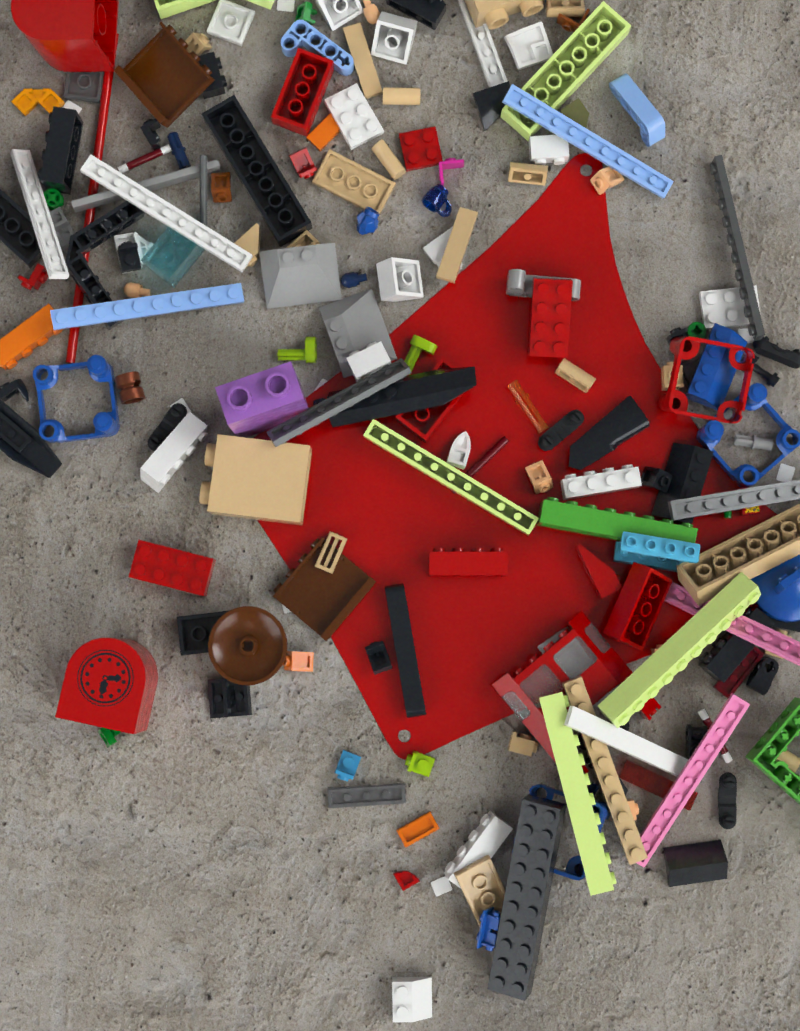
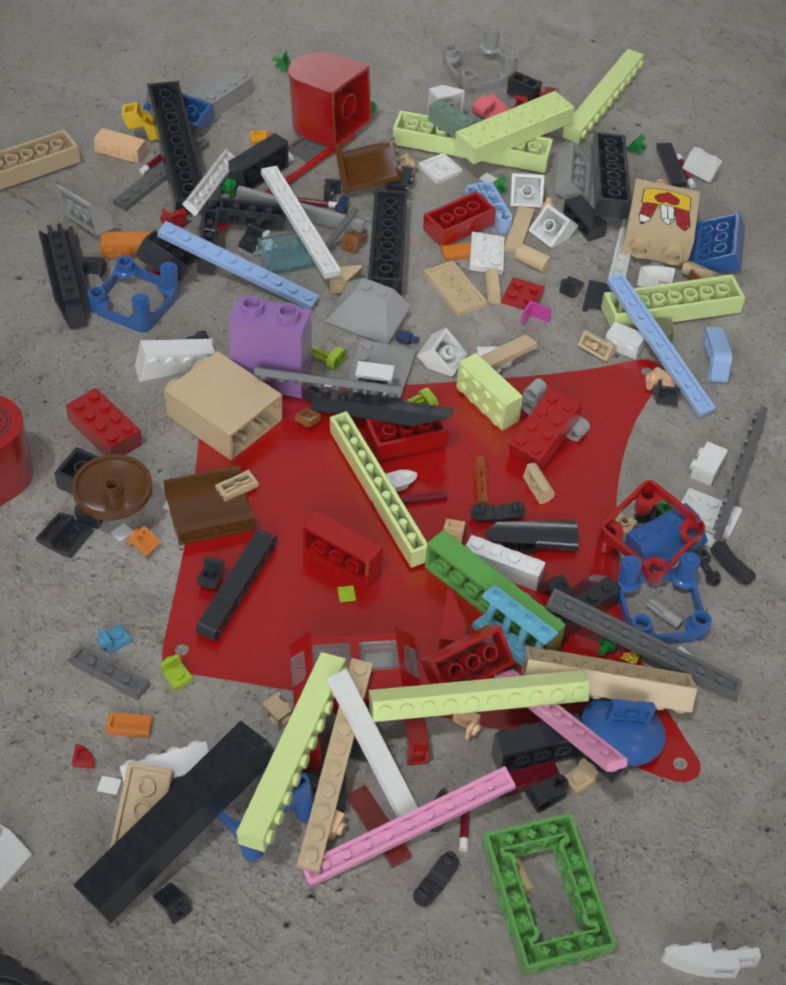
camera: 30 degrees right, 35 degrees down
(71, 343) = (158, 251): none -> black slope
(129, 387) = (179, 306): copper wheel -> none
(303, 163) = (425, 256): bracket -> none
(336, 437) = (307, 417): none -> dark orange plate
(367, 221) = (446, 309): blue rock -> none
(435, 198) = (511, 323): clear blue piece -> none
(458, 108) = (571, 286): none -> black bracket
(473, 304) = (489, 391): none -> yellowish green brick
(489, 920) = (117, 828): blue hinge -> none
(493, 595) = (346, 594): none -> lime sticker
(558, 946) = (172, 902): none -> black bracket
(623, 193) = (666, 395): none -> black bracket
(695, 863) = (361, 918): black slope -> none
(702, 252) = (708, 463): none -> white brick

